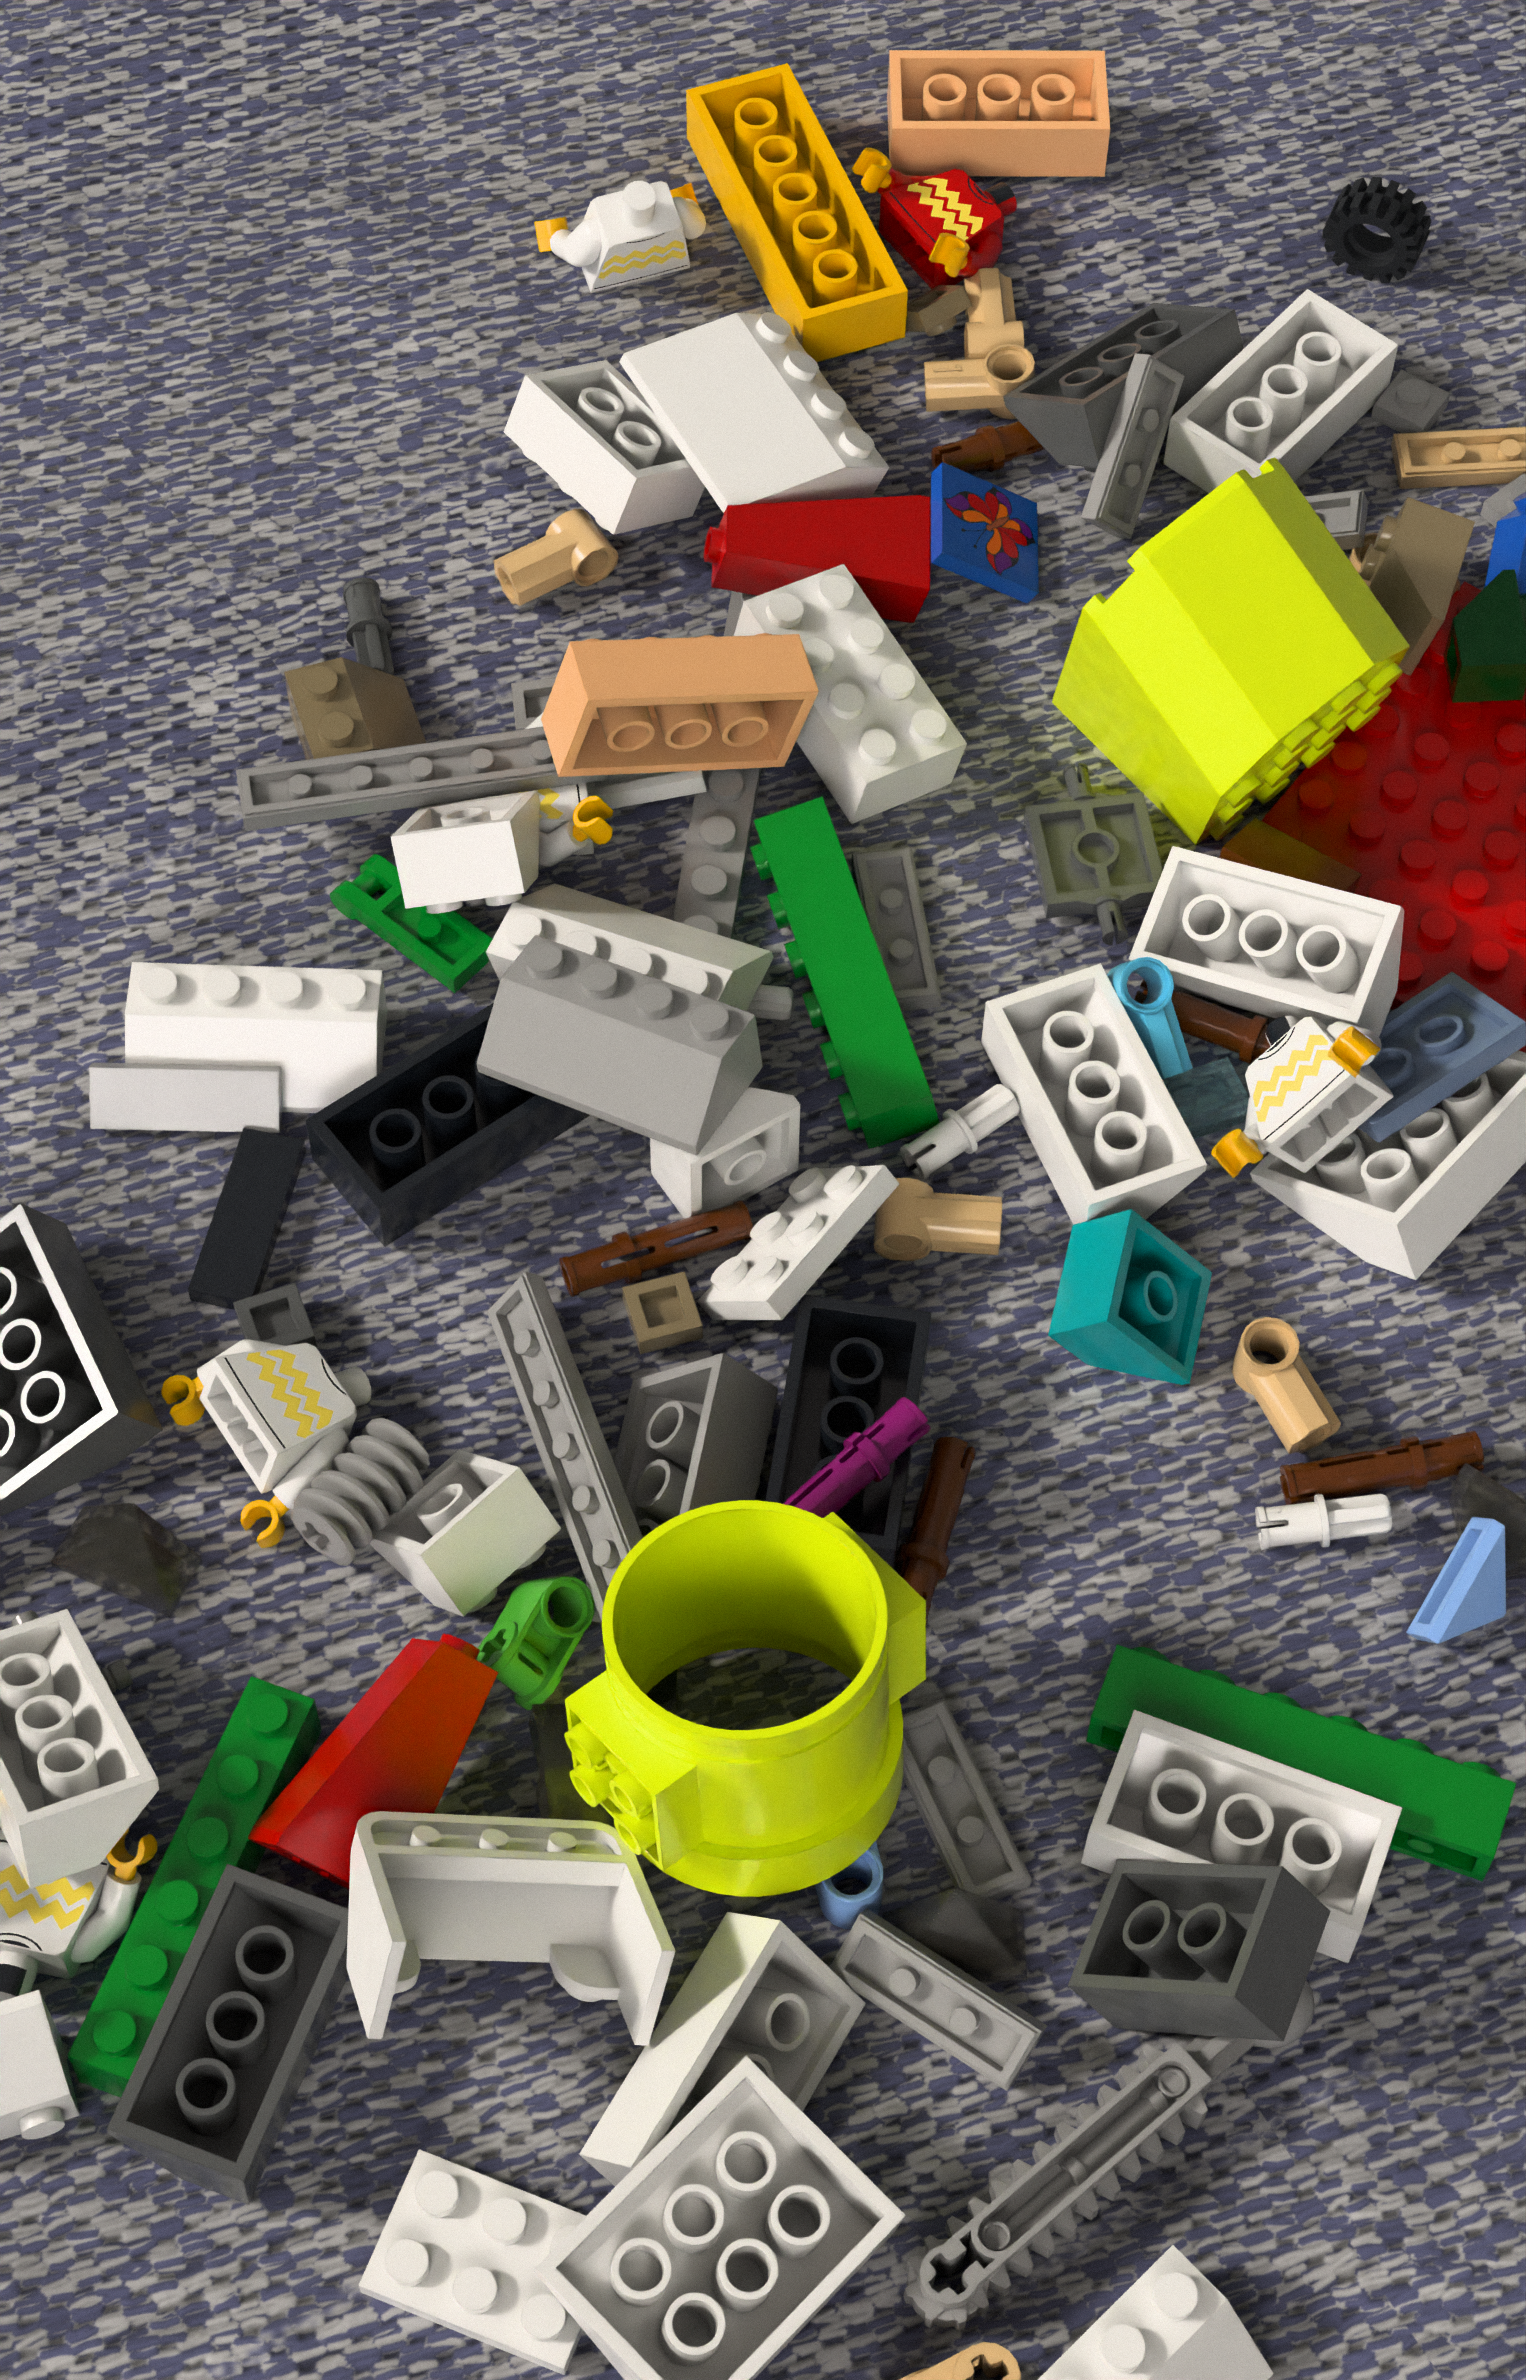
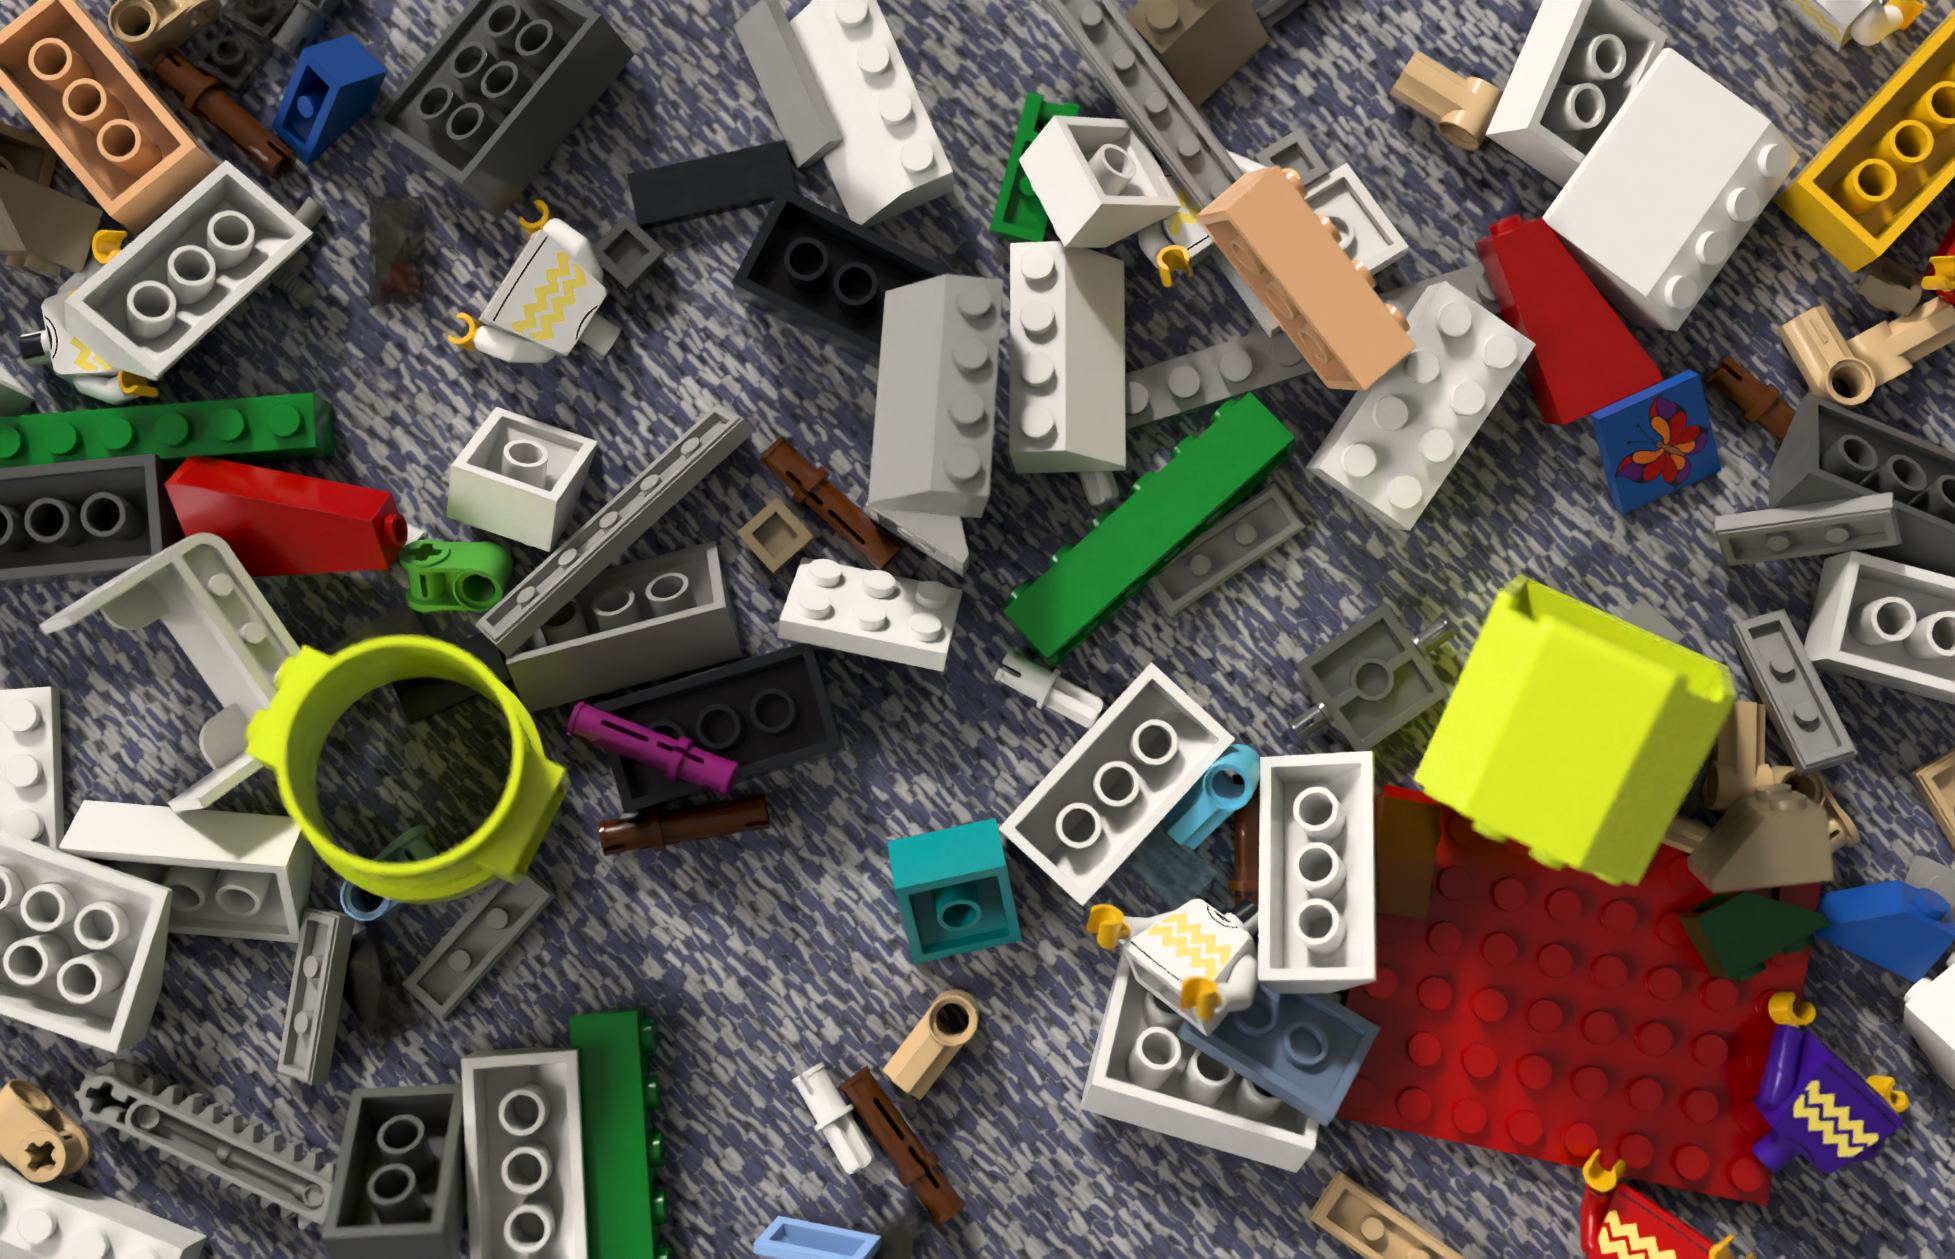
camera: 65 degrees right, 25 degrees up
(360, 1490) = (505, 390): light grey piece -> none
(924, 1221) = (955, 709): tan piece -> none

